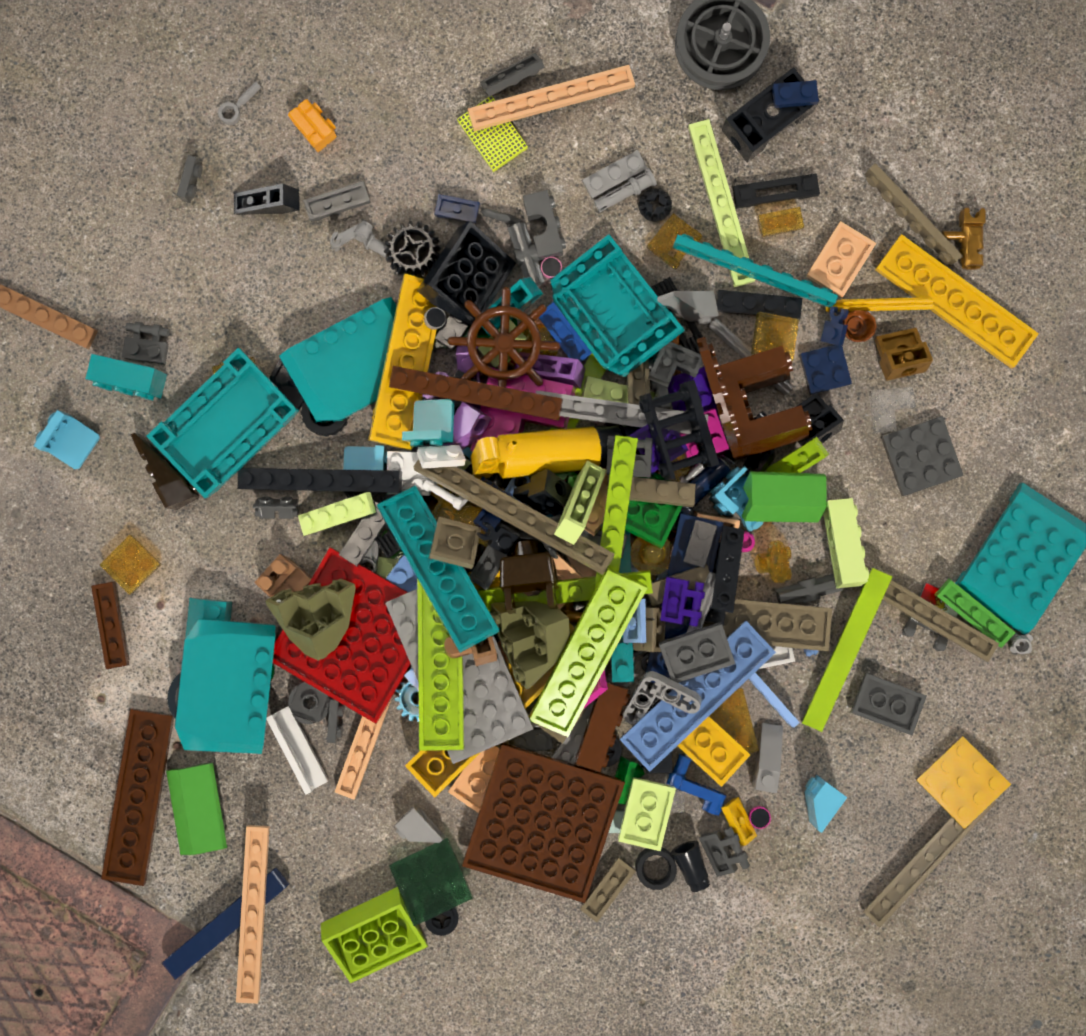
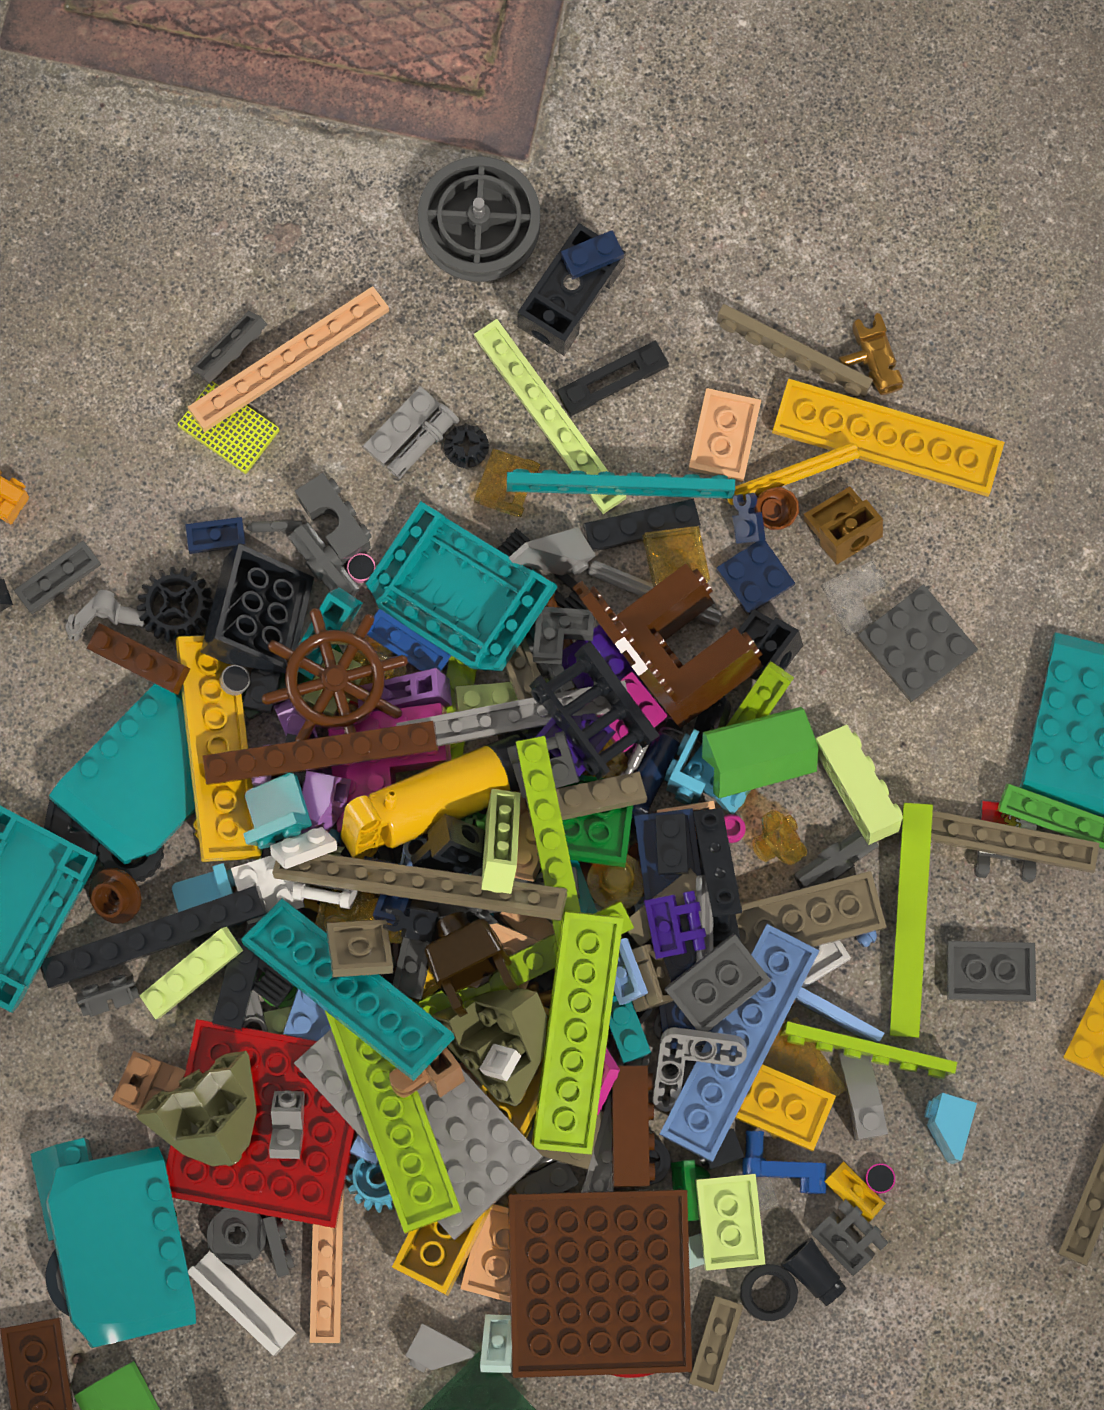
camera: 25 degrees left, 10 degrees down
(303, 441) = (115, 895): none -> reddish brown piece
(366, 643) = (287, 1124): none -> light grey slope
(373, 279) = (138, 658): none -> reddish brown plate
(459, 839) = (496, 1344): none -> light aqua plate
(526, 656) = (500, 1062): none -> white plate
(780, 222) = (632, 414): clear yellow plate -> none
(790, 734) = (856, 1047): none -> lime plate

